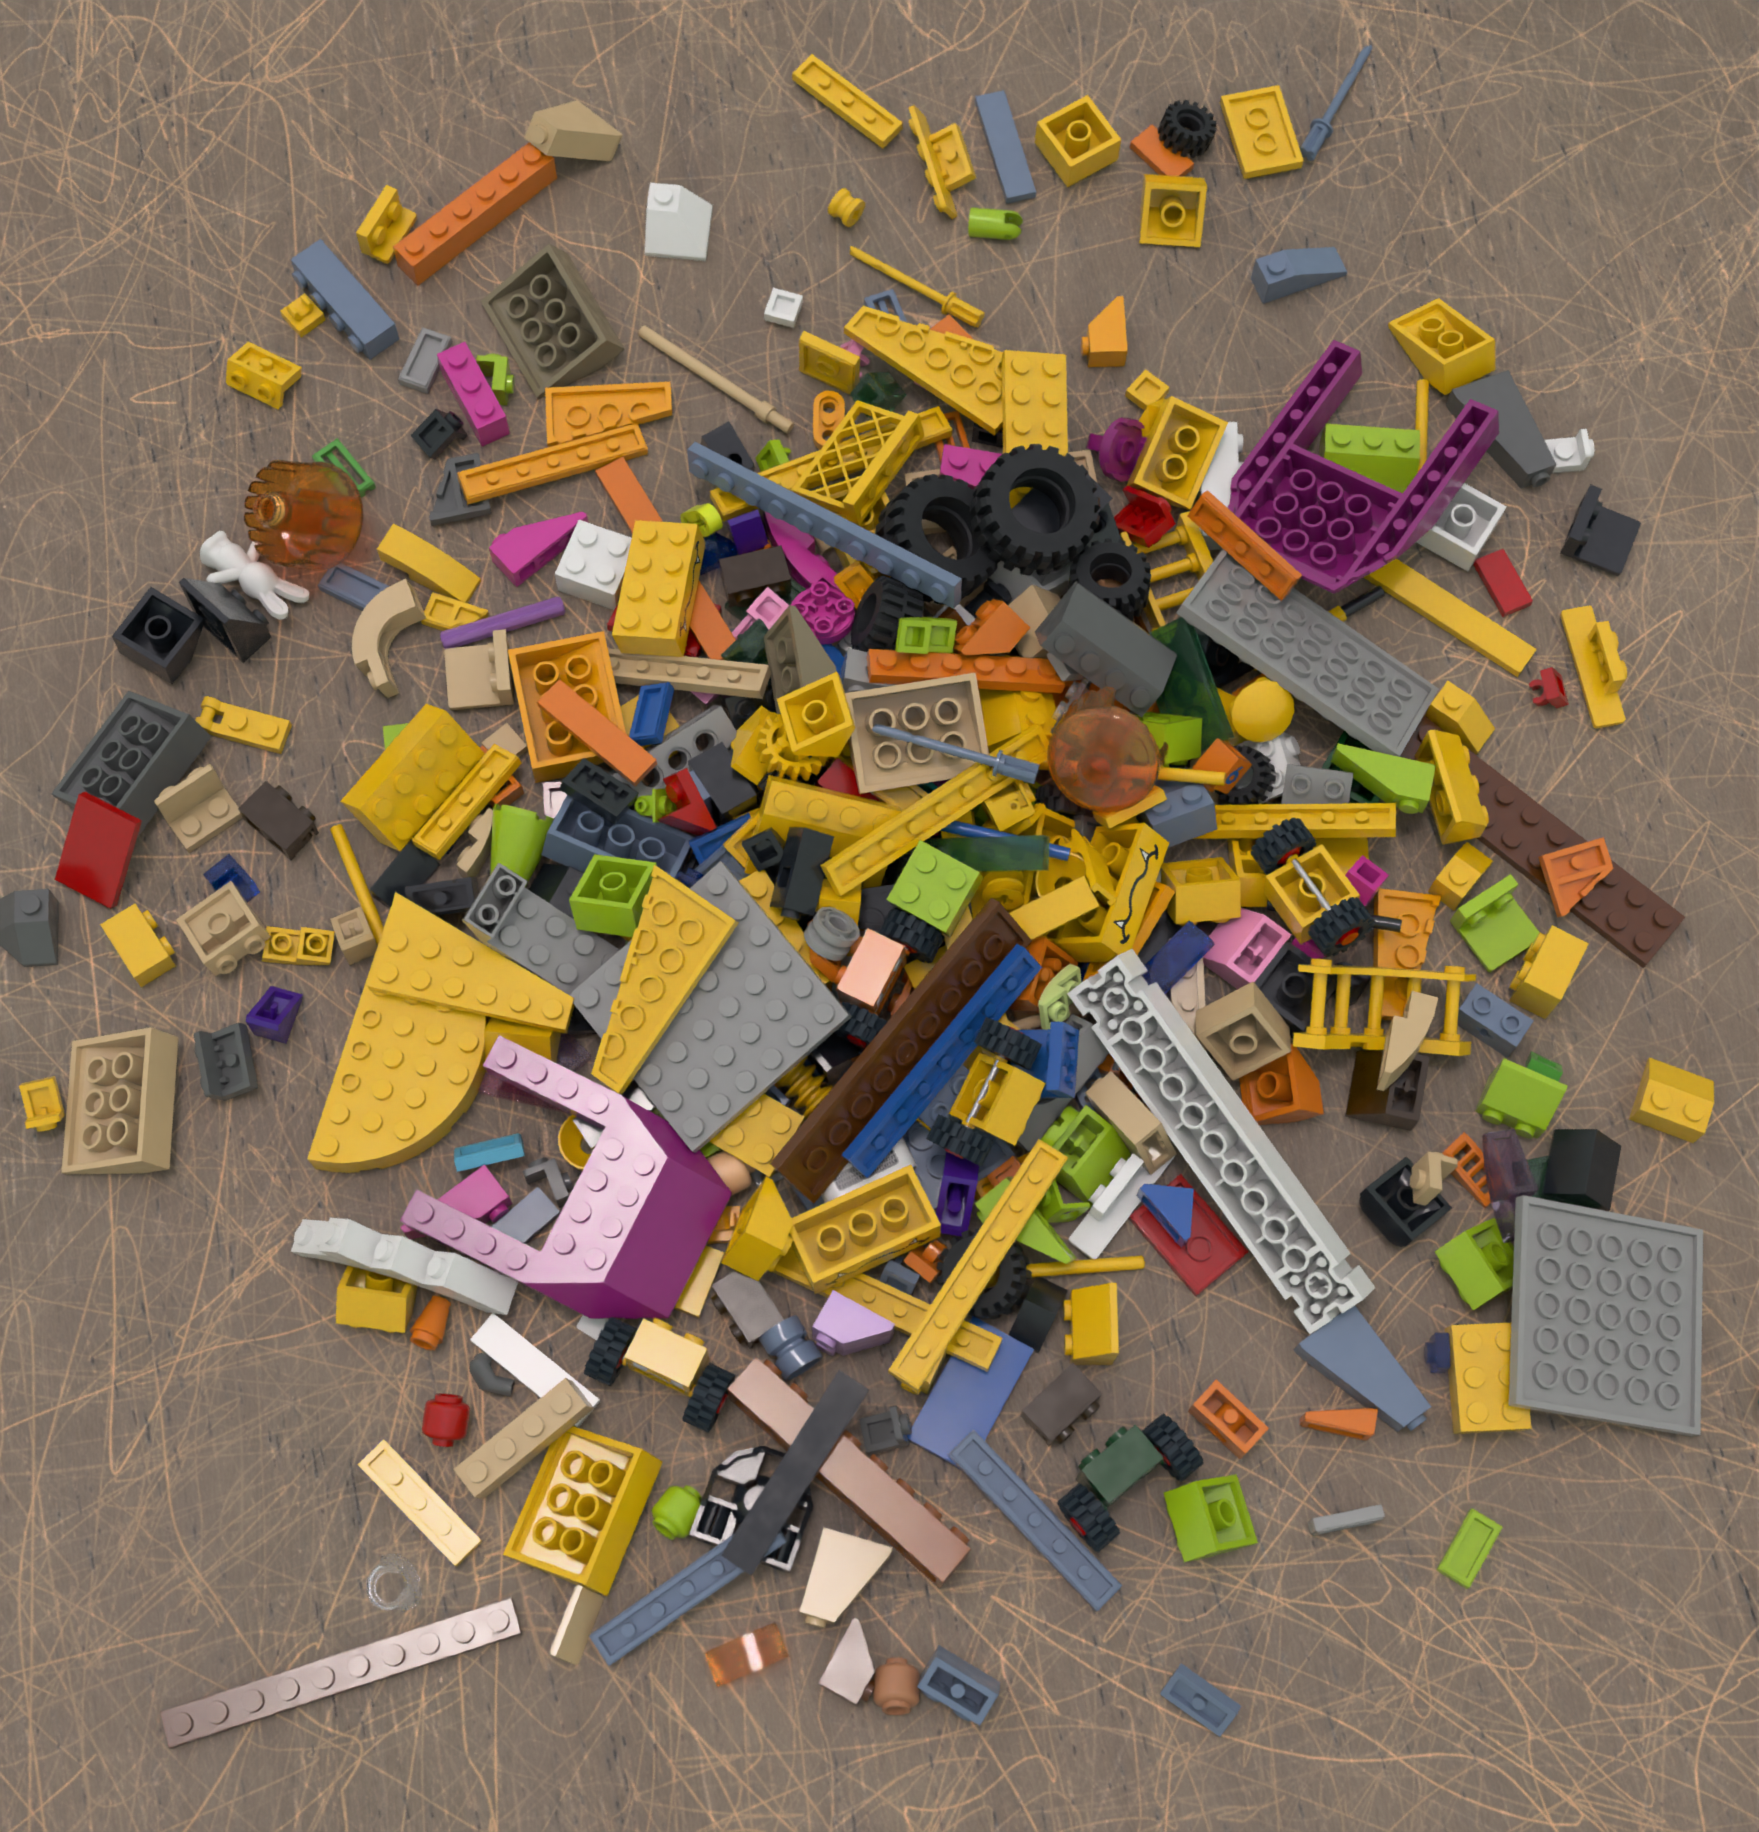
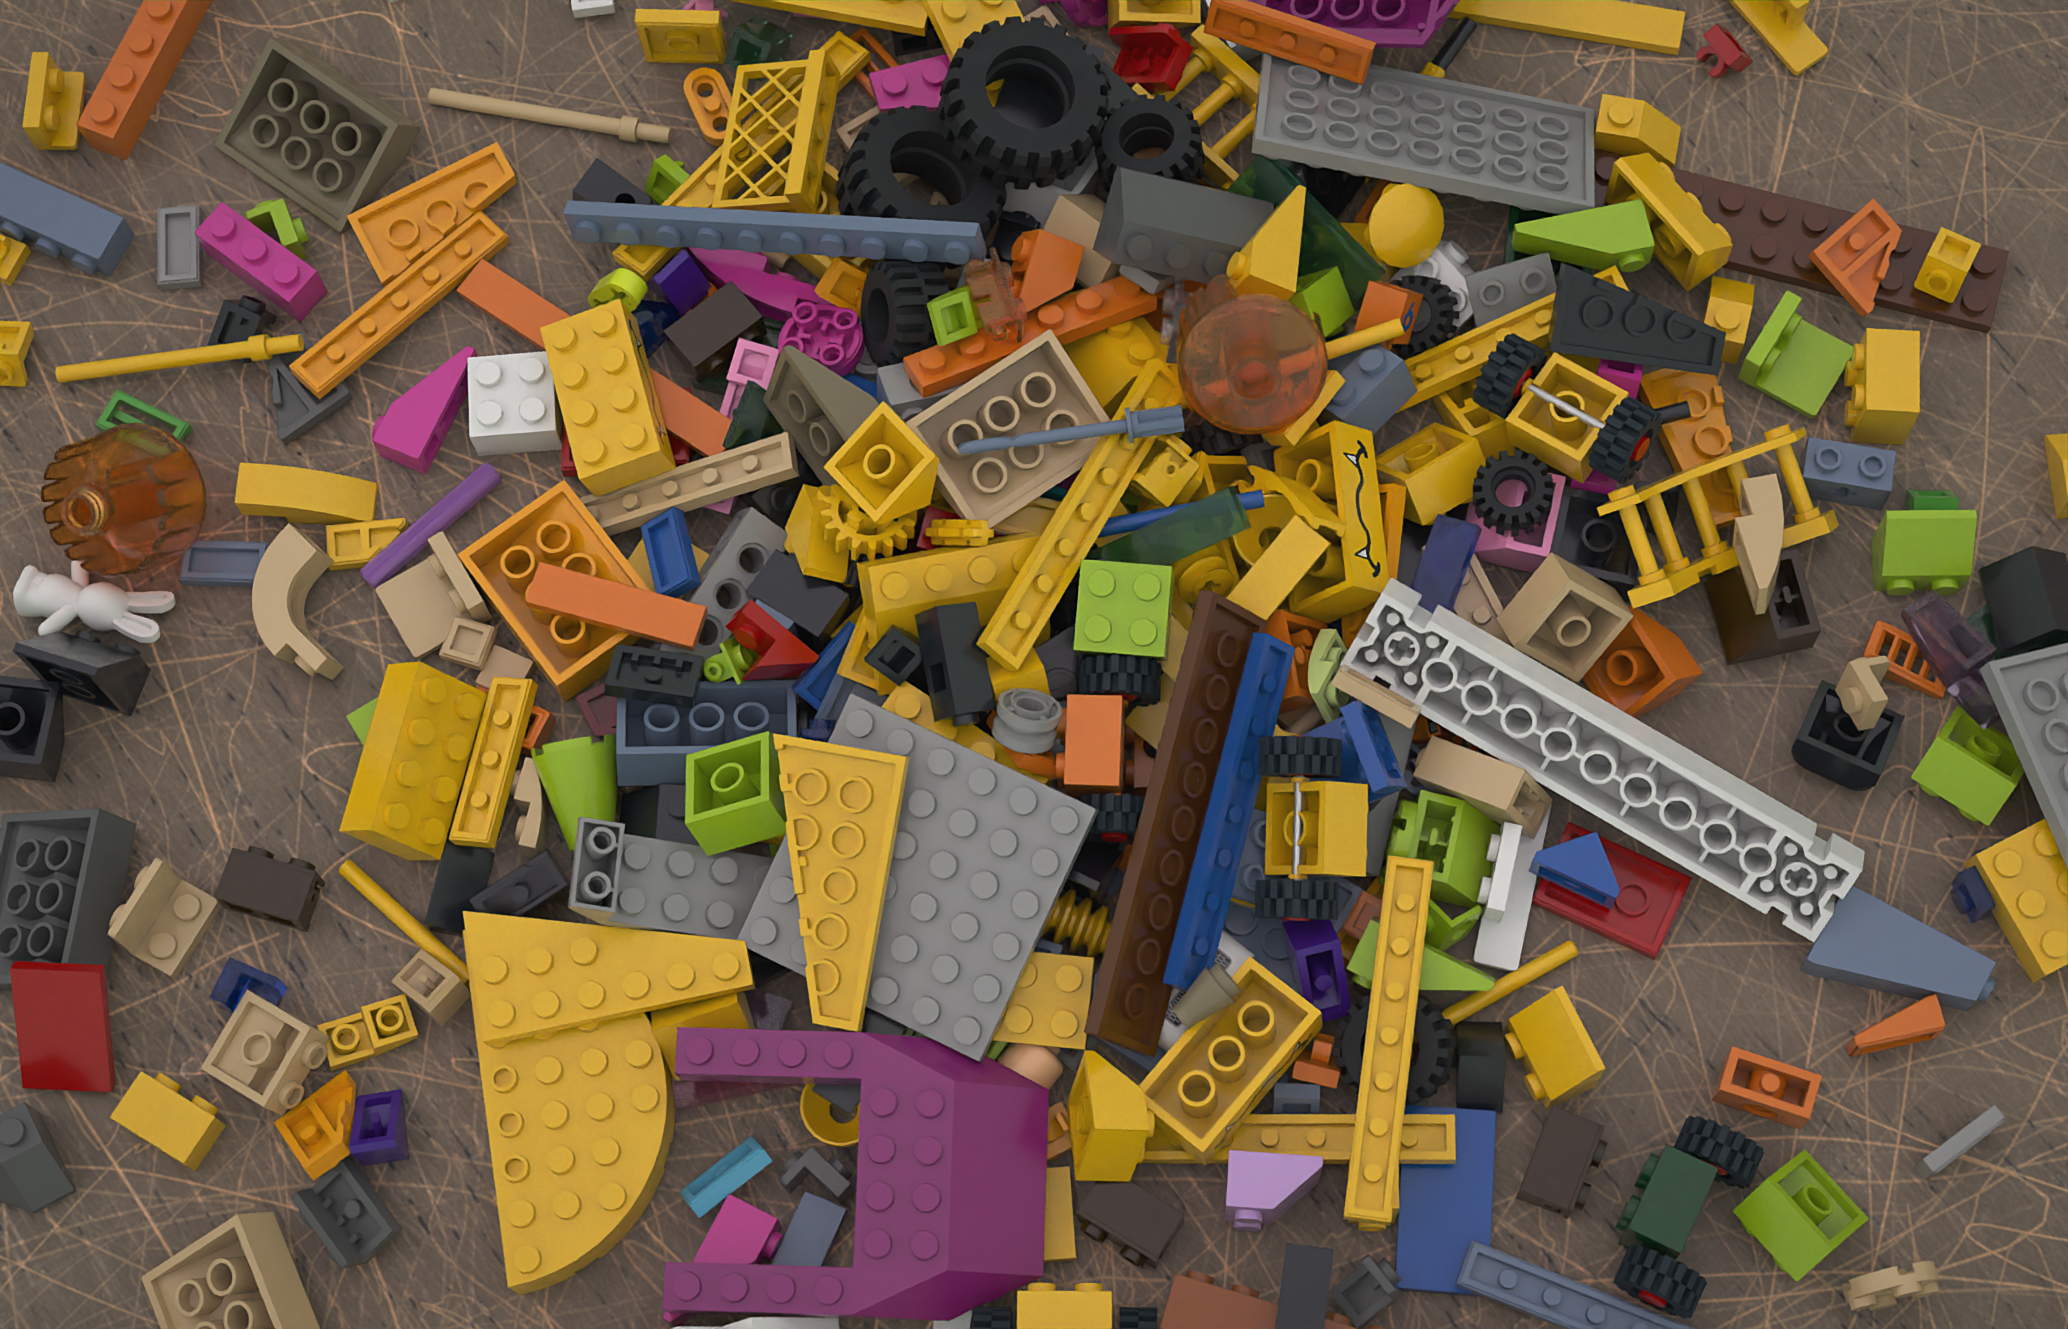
camera: 15 degrees left, 0 degrees up
(236, 993) = (321, 1125): none -> light orange wing
(244, 725) = (170, 792): yellow plate -> none
(442, 450) = (257, 348): none -> yellow bar
(488, 713) = (468, 643): none -> tan tile
(792, 1351) = (1202, 1242): sand blue wheel -> none
(848, 785) = (959, 532): none -> yellow axle
(867, 1177) = (1206, 996): none -> dark tan cone
(950, 648) = (995, 281): none -> clear orange hinge
(1081, 1025) = (1376, 696): none -> tan tile
(1153, 691) = (1272, 254): none -> yellow slope
(1244, 1593) = (1883, 1287): none -> tan plate
(1251, 910) = (1516, 468): none -> black tyre
(1376, 845) = (1618, 325): none -> black wing
(1634, 906) = (1946, 265): none -> yellow bracket

